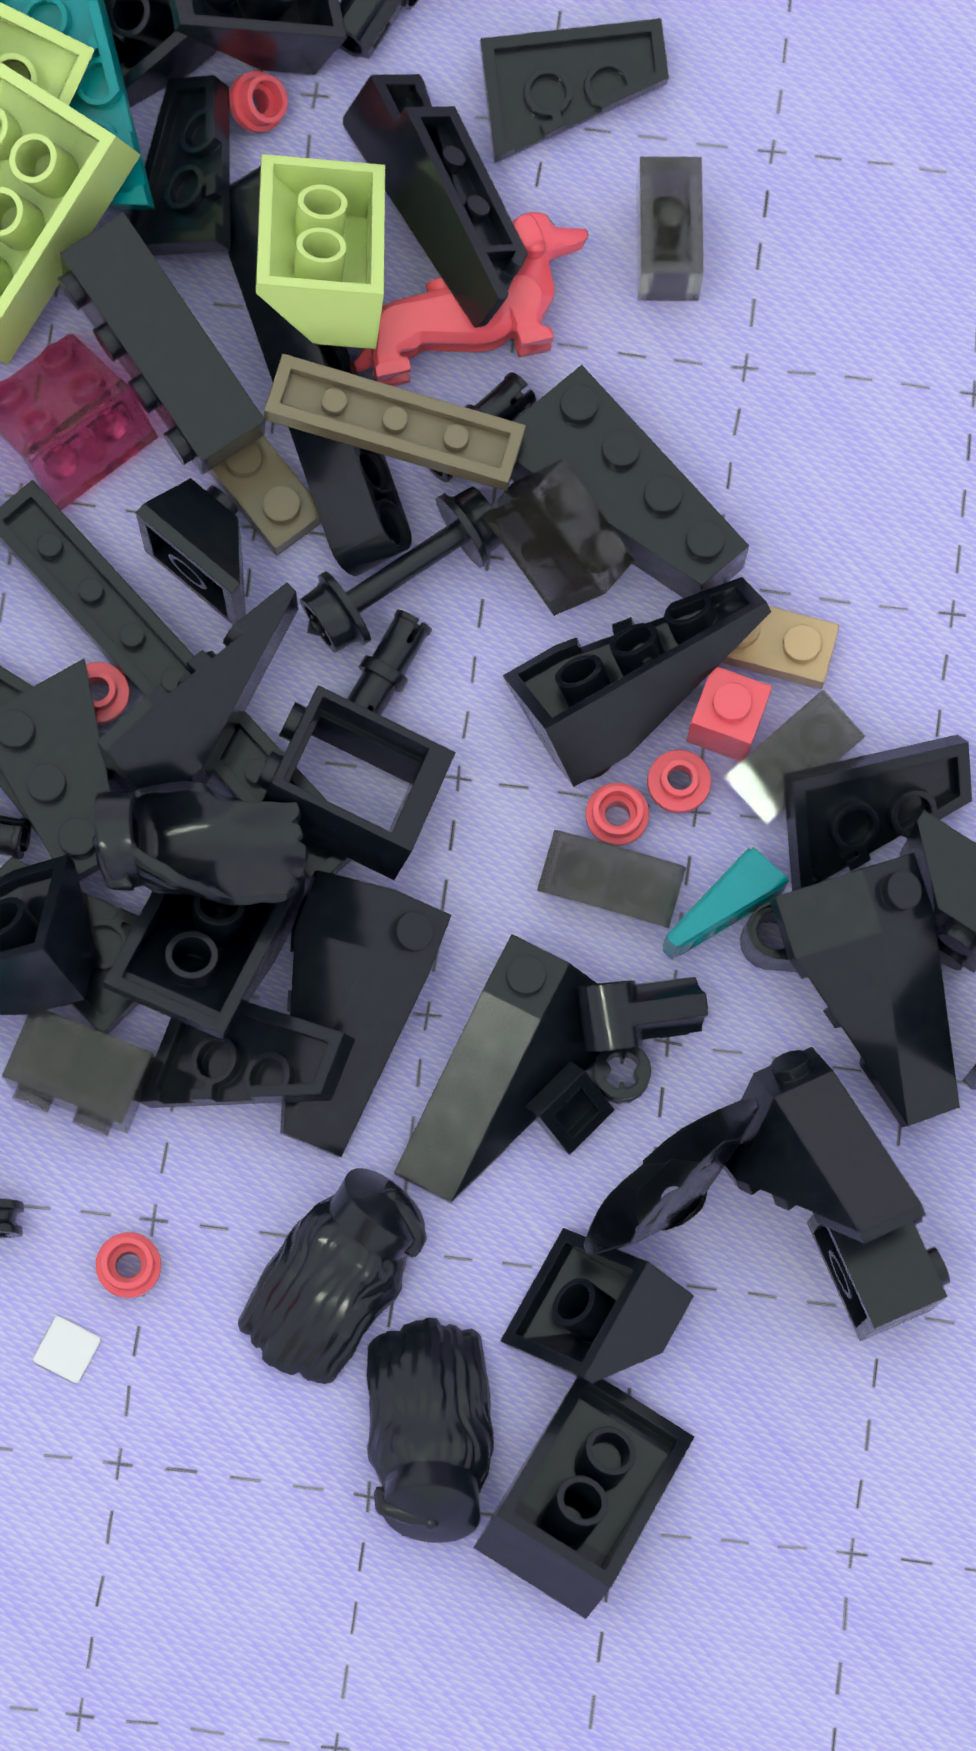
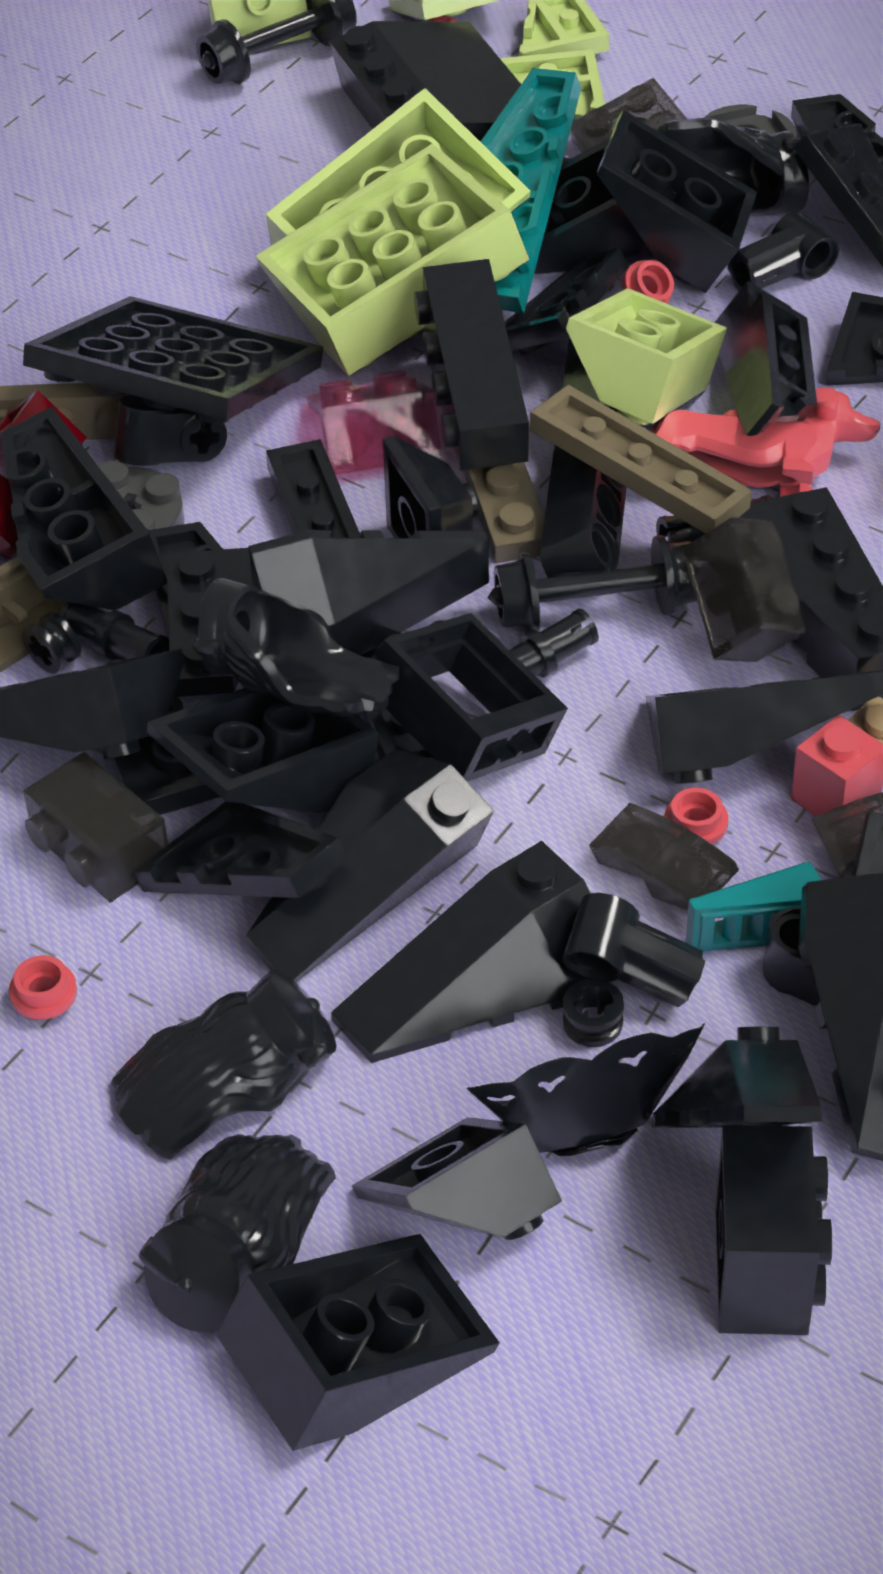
camera: 30 degrees right, 30 degrees down
(570, 1107) = (525, 1013): black plate -> none
(673, 799) = (767, 817): coral plate -> none

